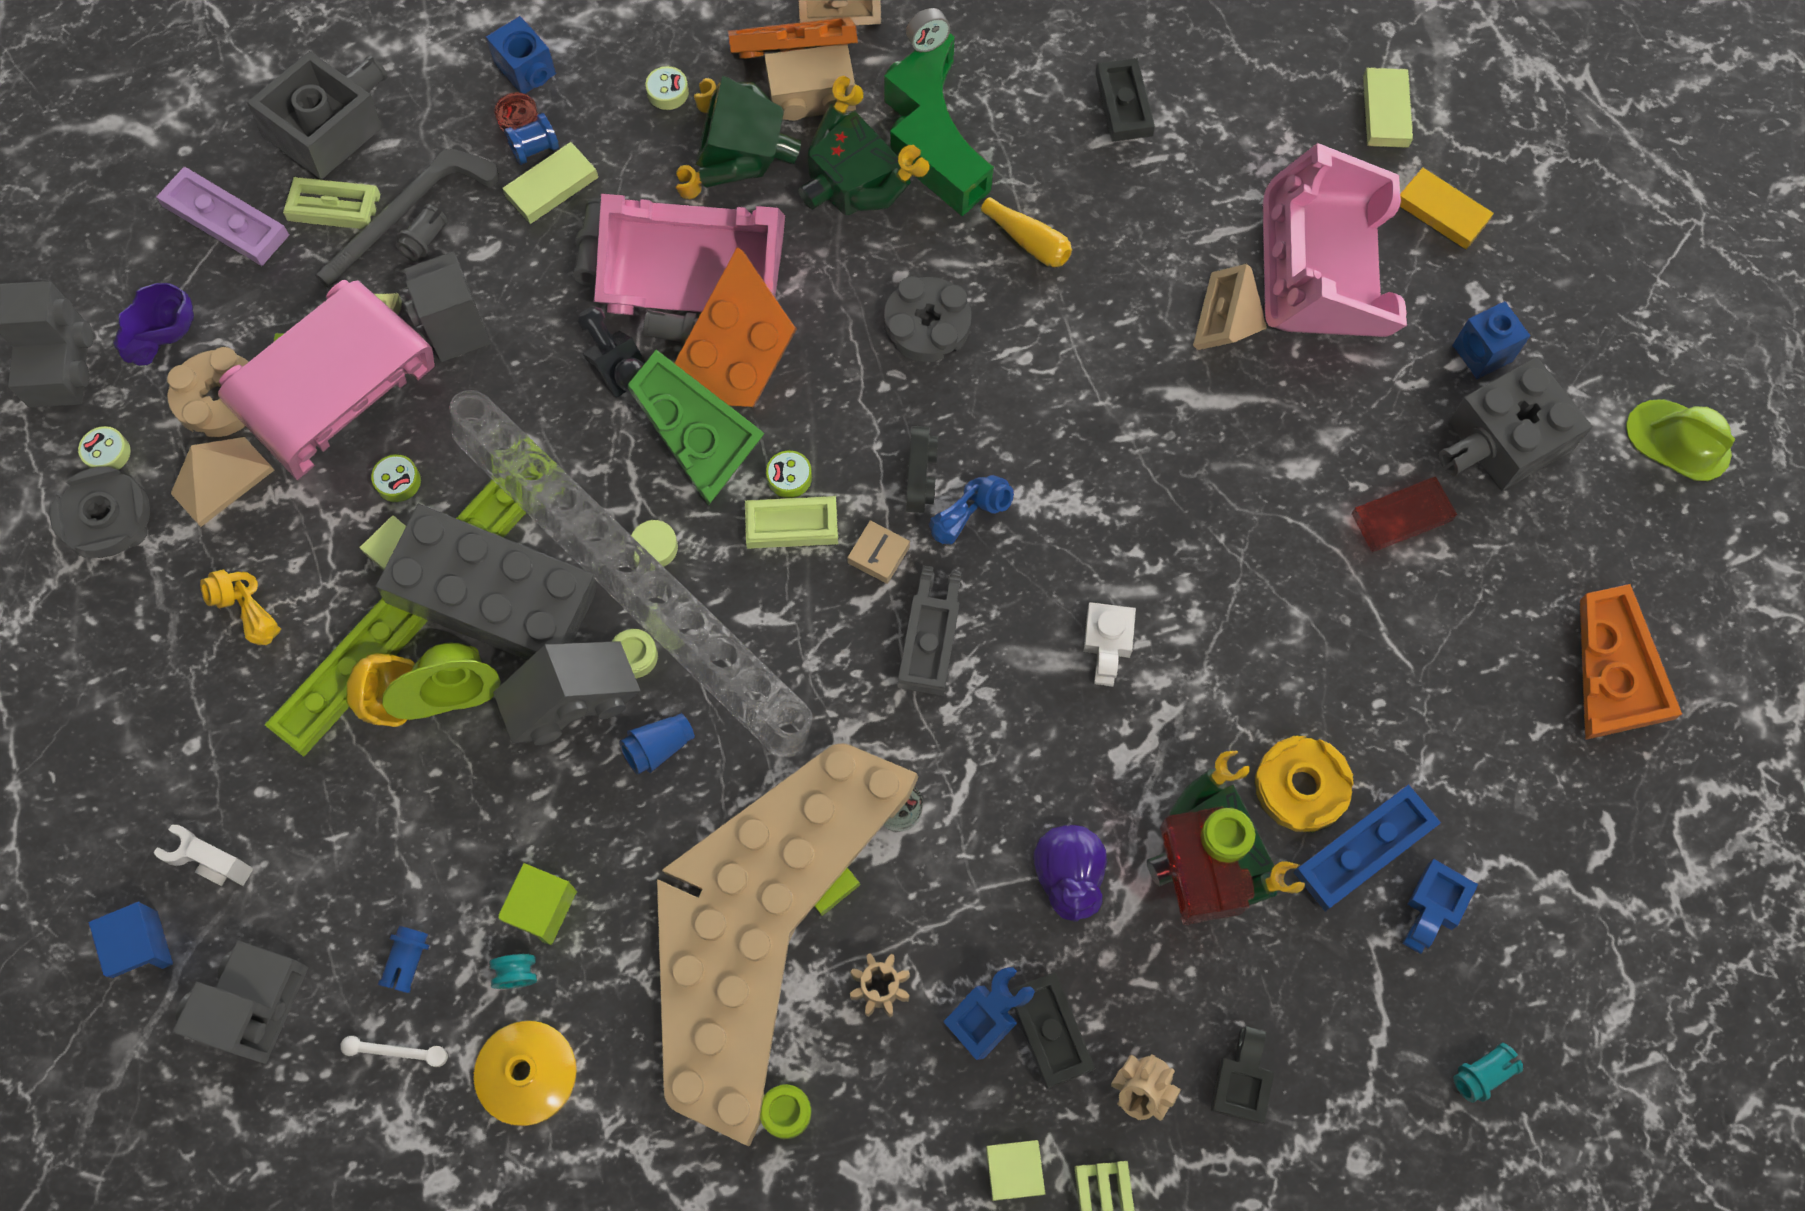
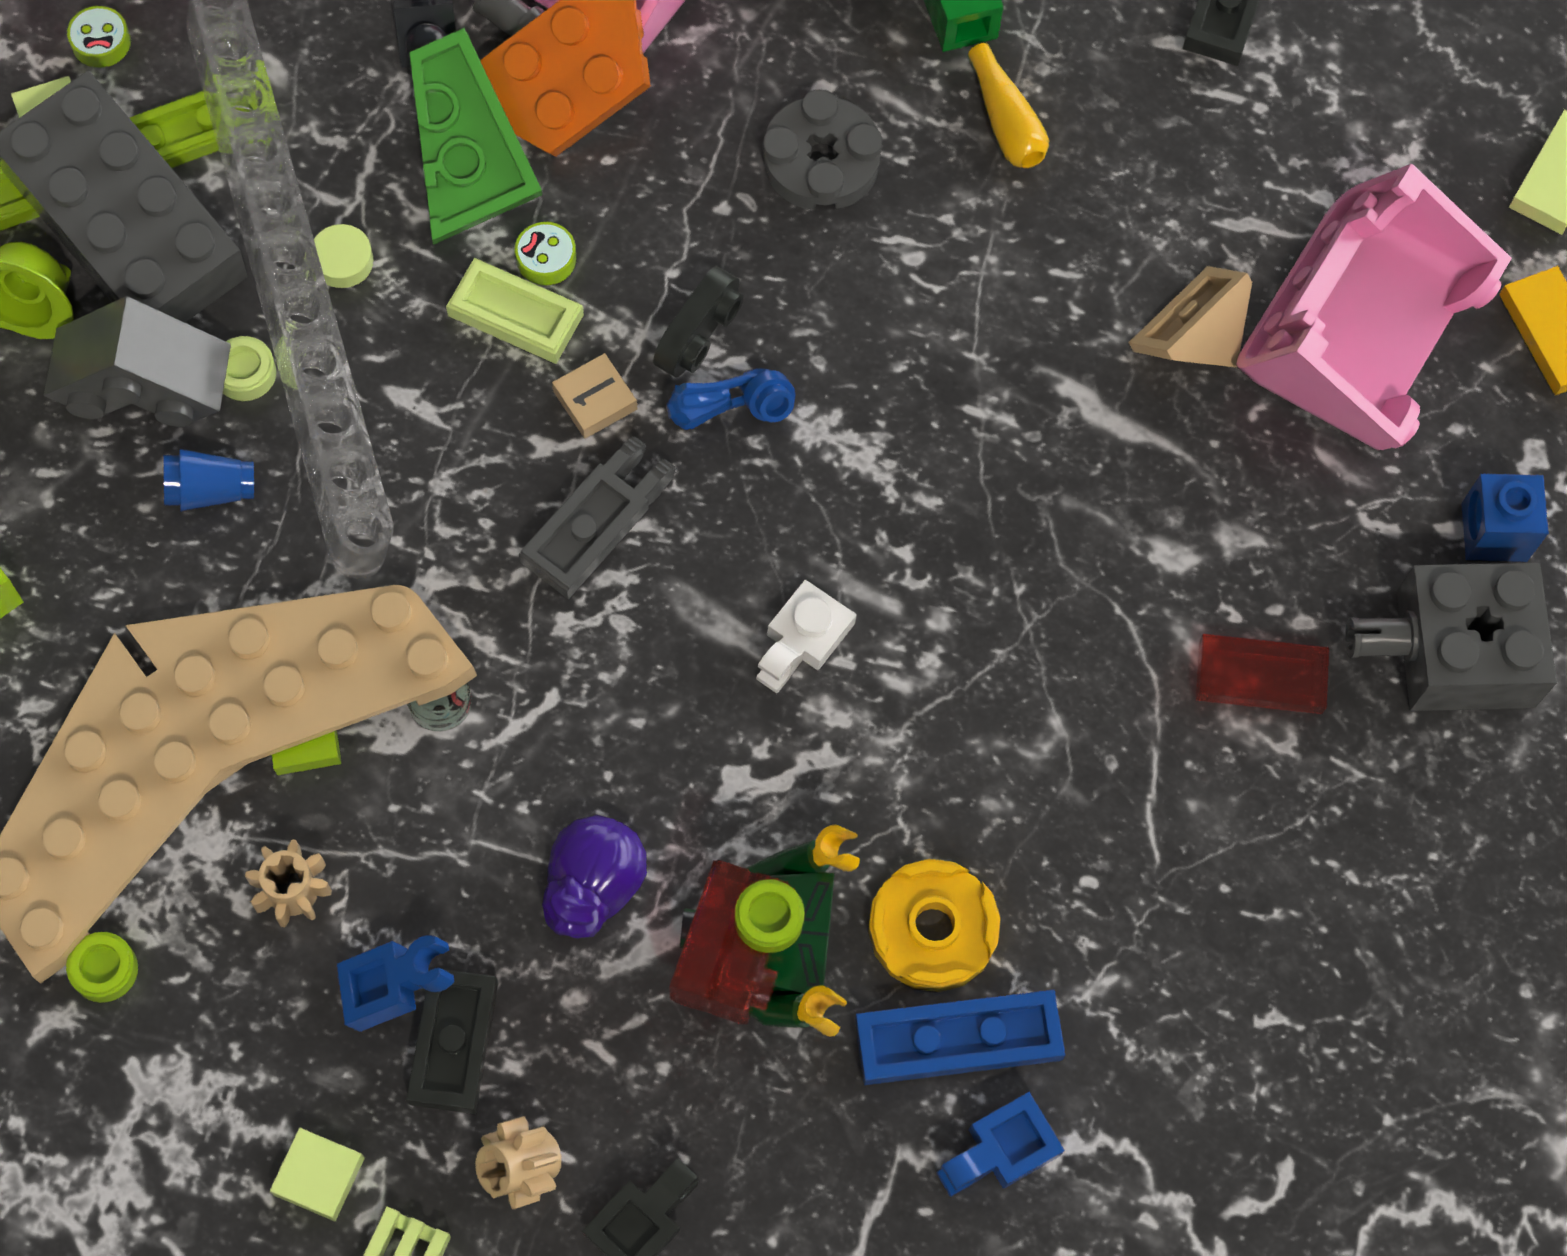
camera: 25 degrees right, 0 degrees up
(1621, 666) = (1418, 995): orange wing -> none

